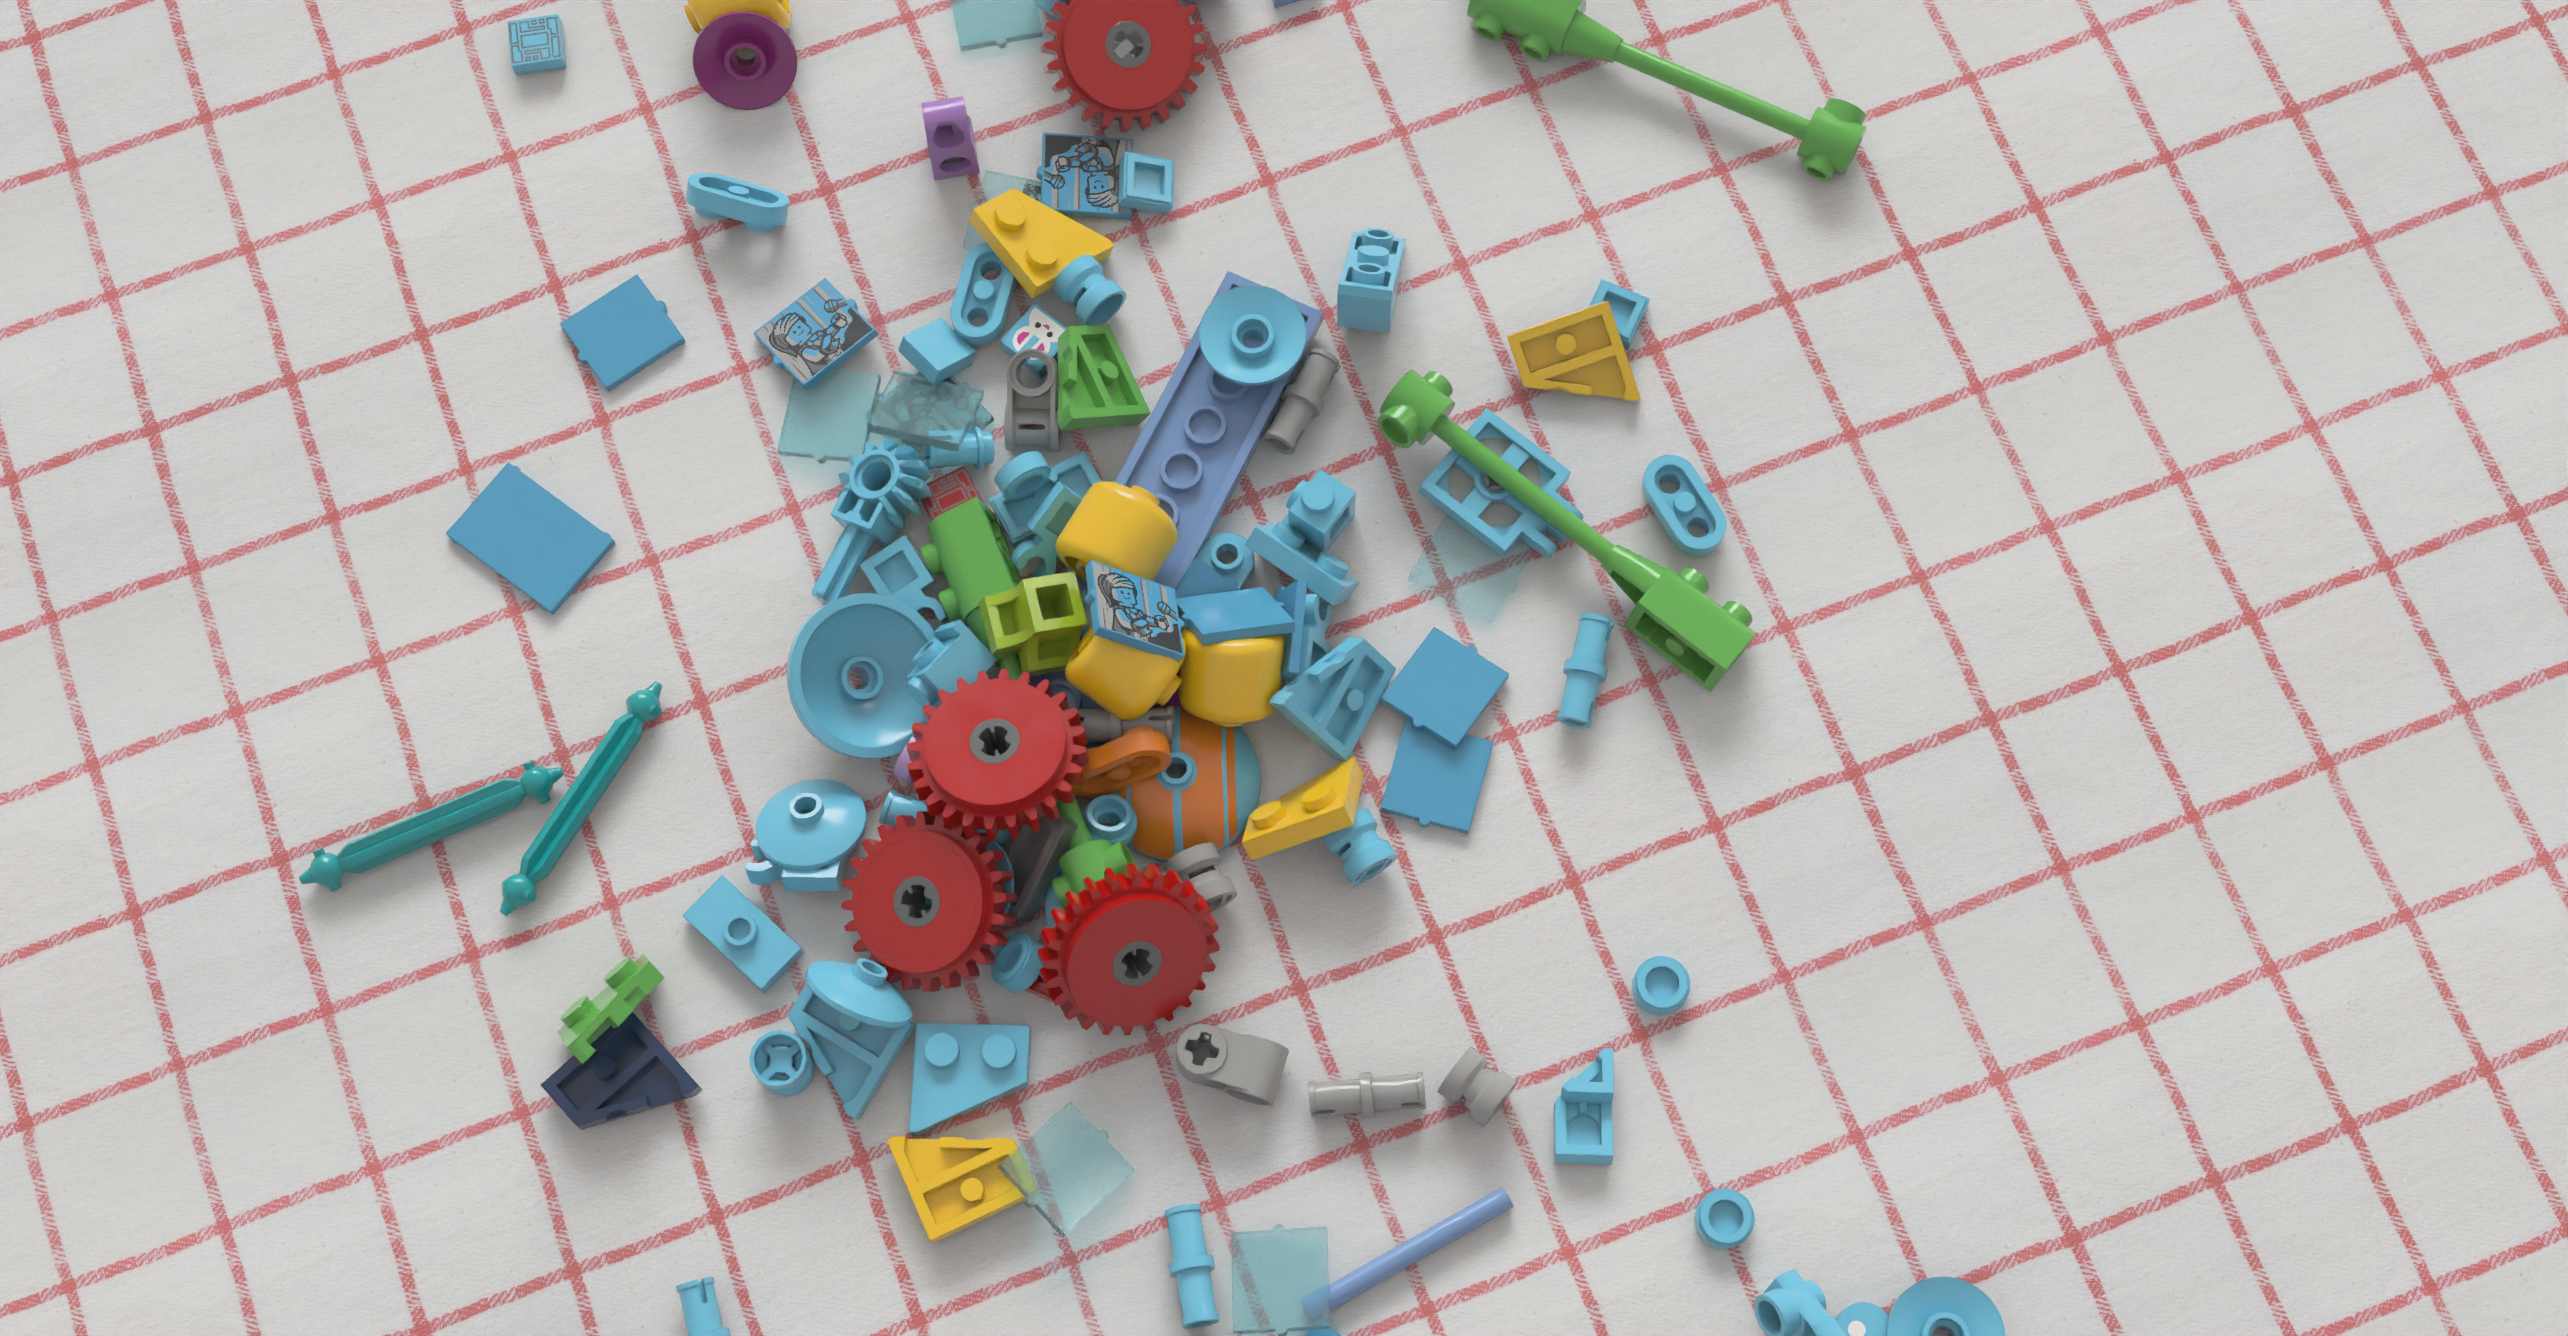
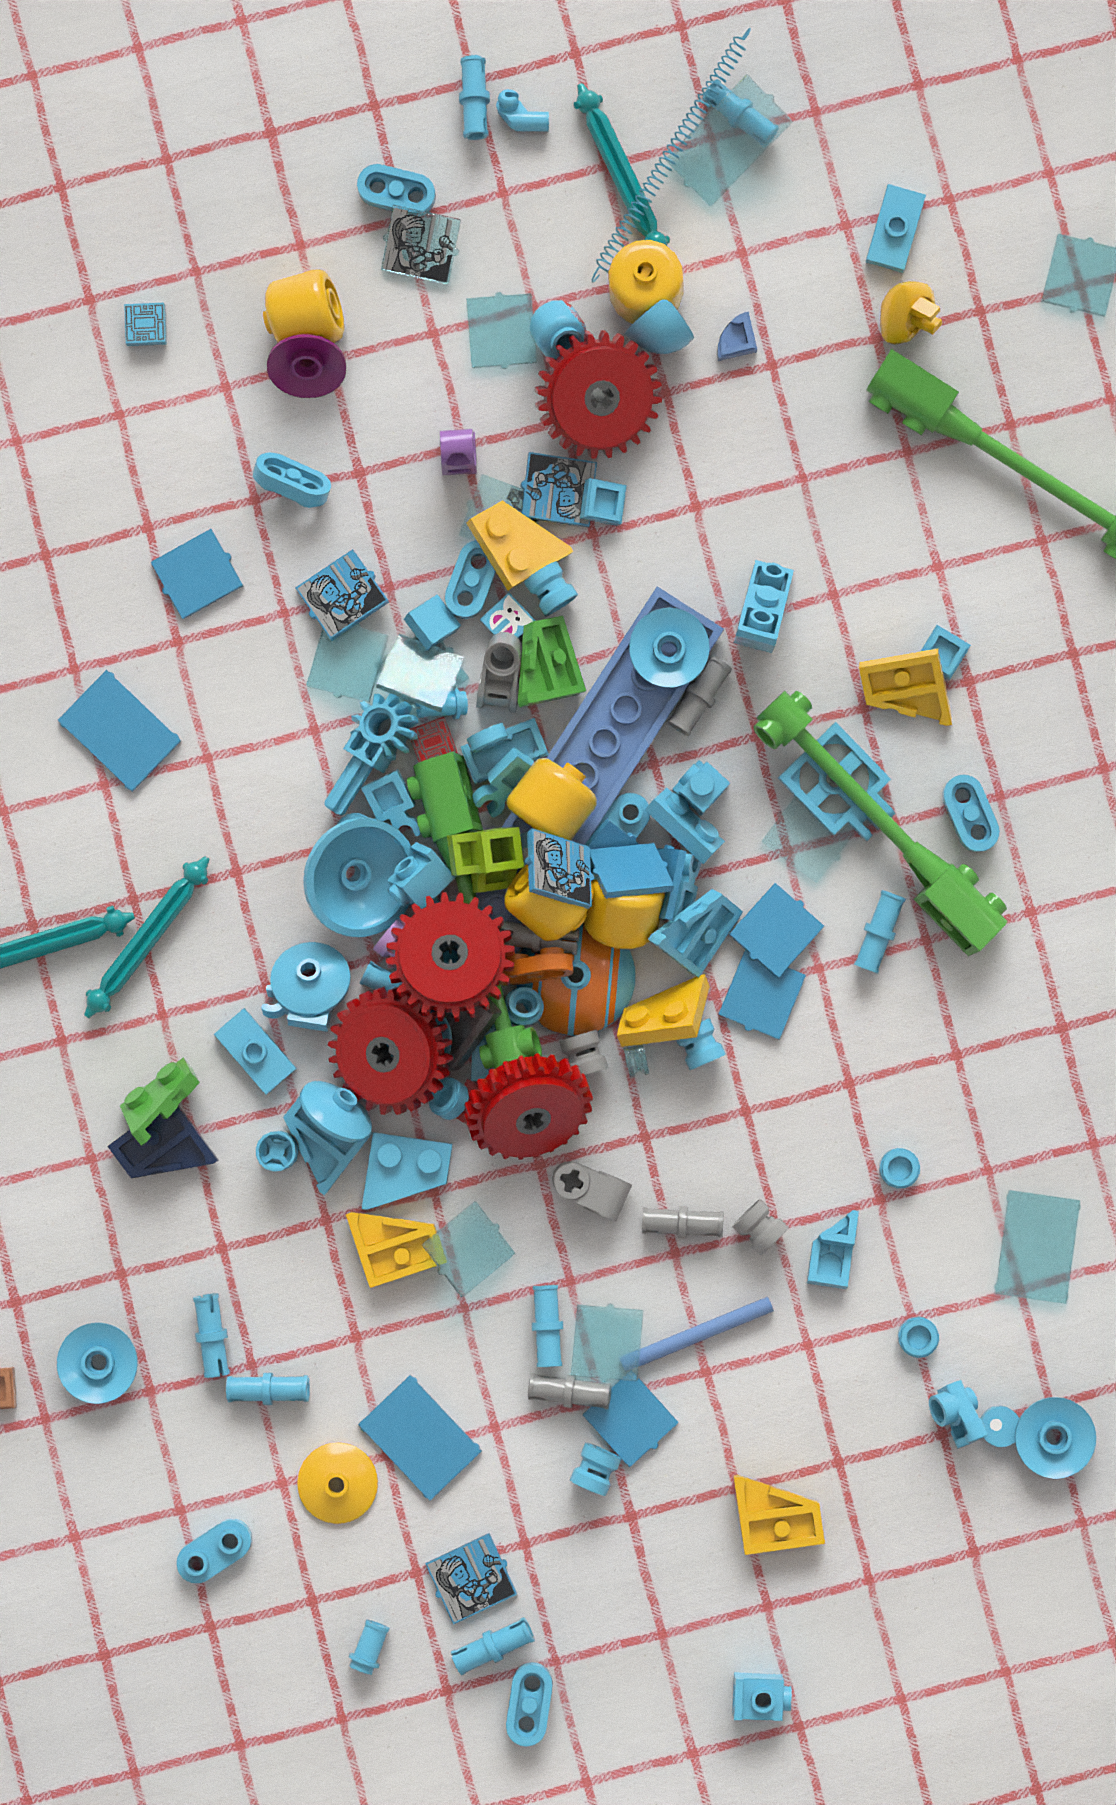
camera: 10 degrees right, 15 degrees up
(1273, 877) = (636, 1060): none -> clear light blue bush
(1871, 1072) = (1037, 1246): none -> clear light blue piece

